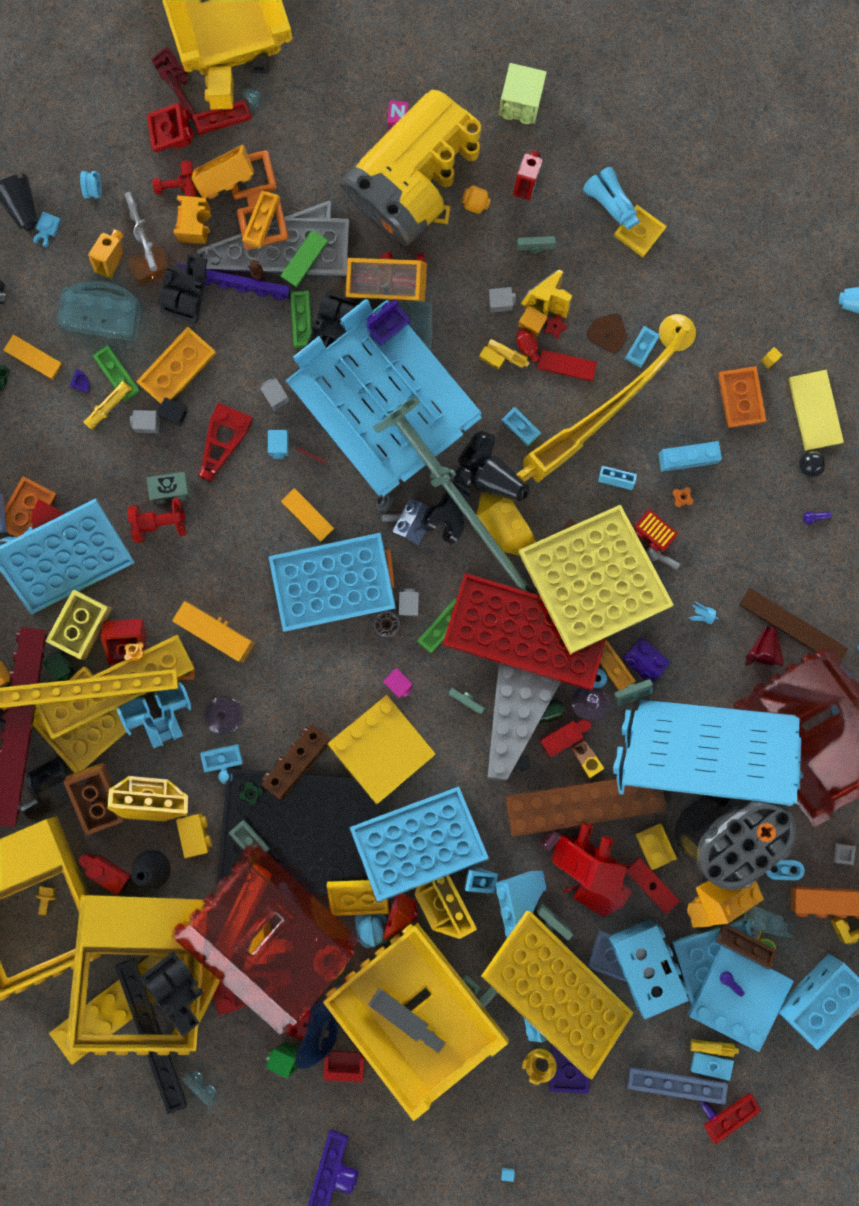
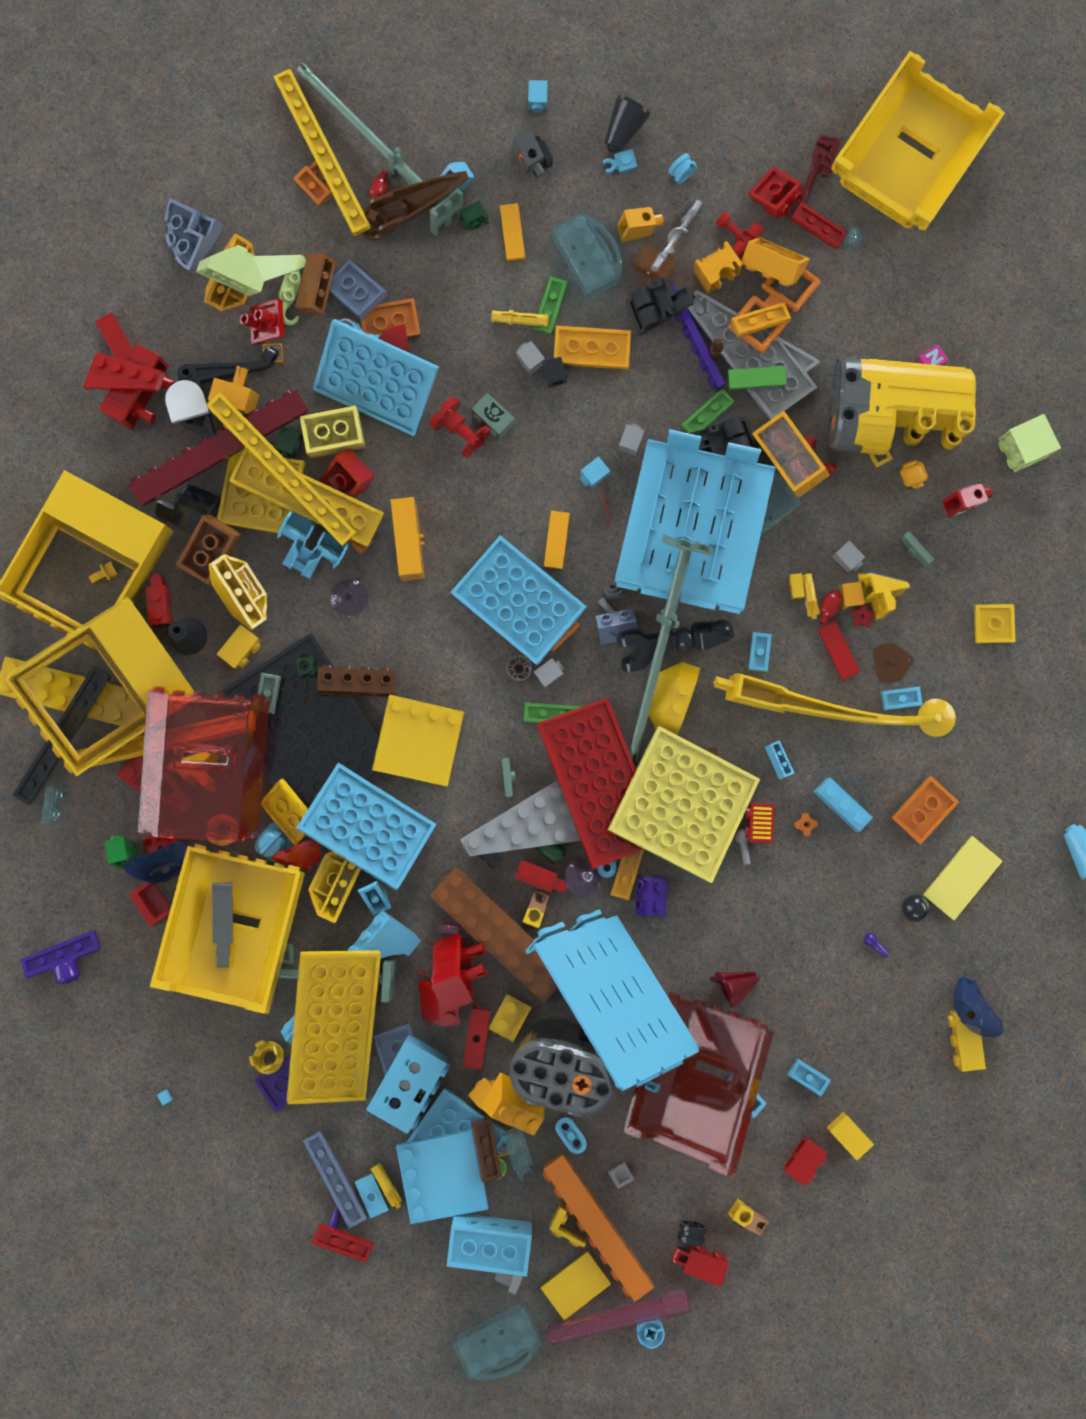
camera: 60 degrees right, 0 degrees up
(80, 382) = (522, 283): dark purple tile -> none
(137, 654) = (341, 492): light orange plate -> none
(174, 989) = (110, 721): black plate -> none
(220, 87) = (840, 205): yellow brick -> none
(222, 759) = (314, 623): medium azure plate -> none
(230, 419) = (584, 420): red plate -> none
(260, 64) = (885, 221): black tile -> none
(387, 322) = (756, 480): dark purple bracket -> none
(398, 683) = (479, 714): dark pink brick -> none
(500, 481) = (702, 668): black cone -> none
(619, 205) = (1000, 592): medium azure piece -> none
(633, 692) = (617, 905): sand green plate -> none
(708, 614) = (726, 916): medium azure piece -> none
(727, 979) = (448, 1153): dark purple piece -> none
(771, 357) = (975, 808): yellow piece -> none
(790, 623) = (772, 992): reddish brown tile -> none

